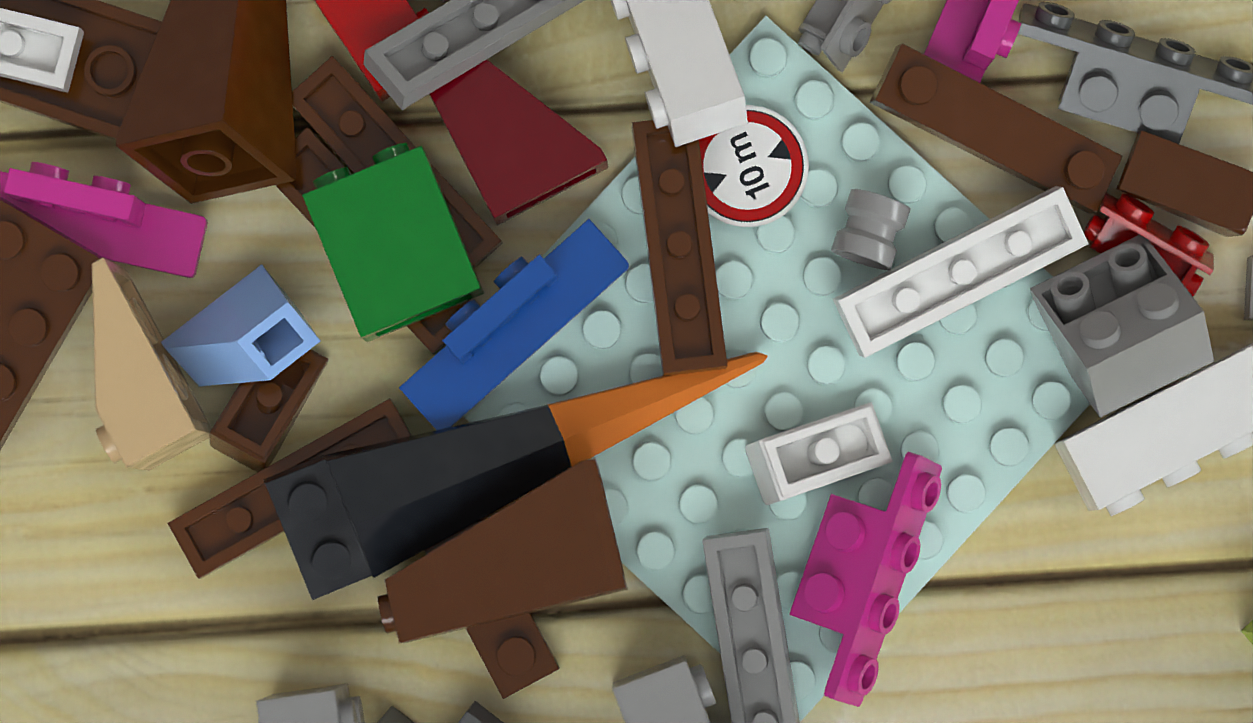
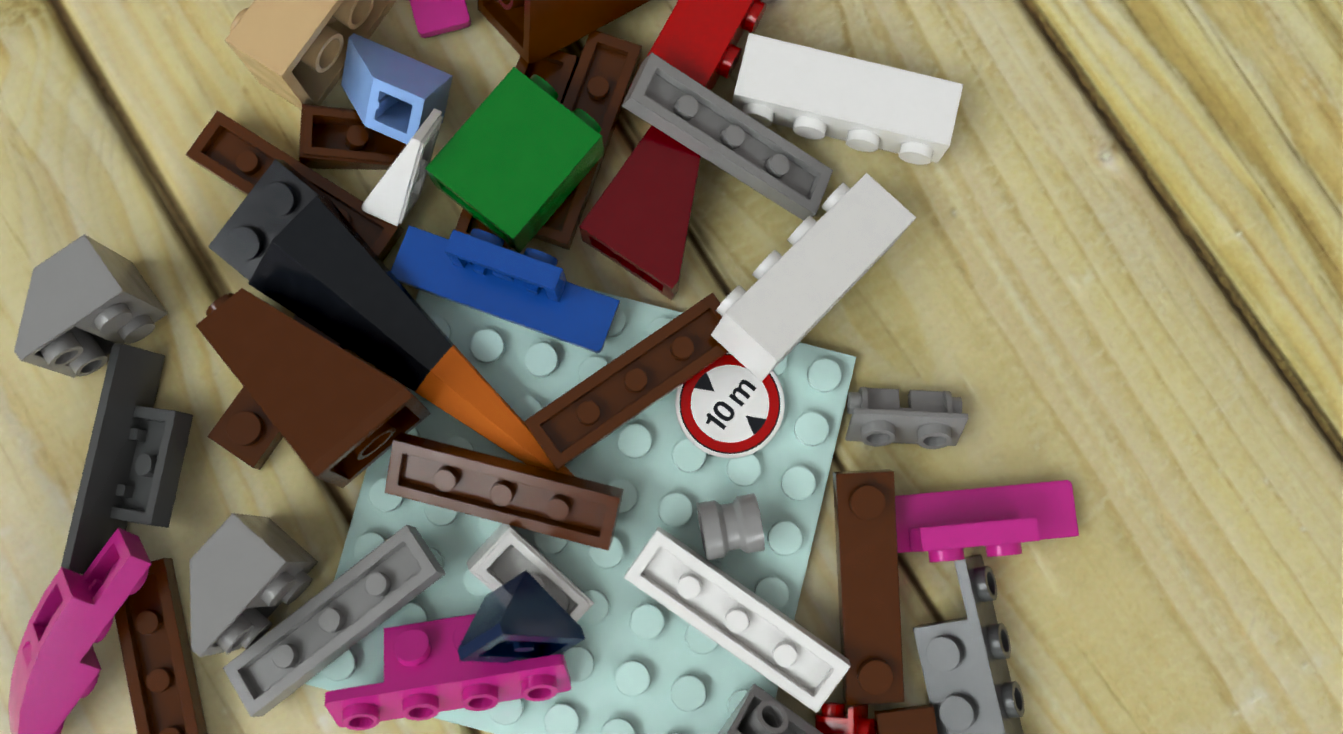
camera: 55 degrees right, 5 degrees down
(342, 367) = (404, 179): none -> white slope
(719, 429) = (503, 490): none -> reddish brown plate
(857, 477) = (519, 624): none -> dark blue slope

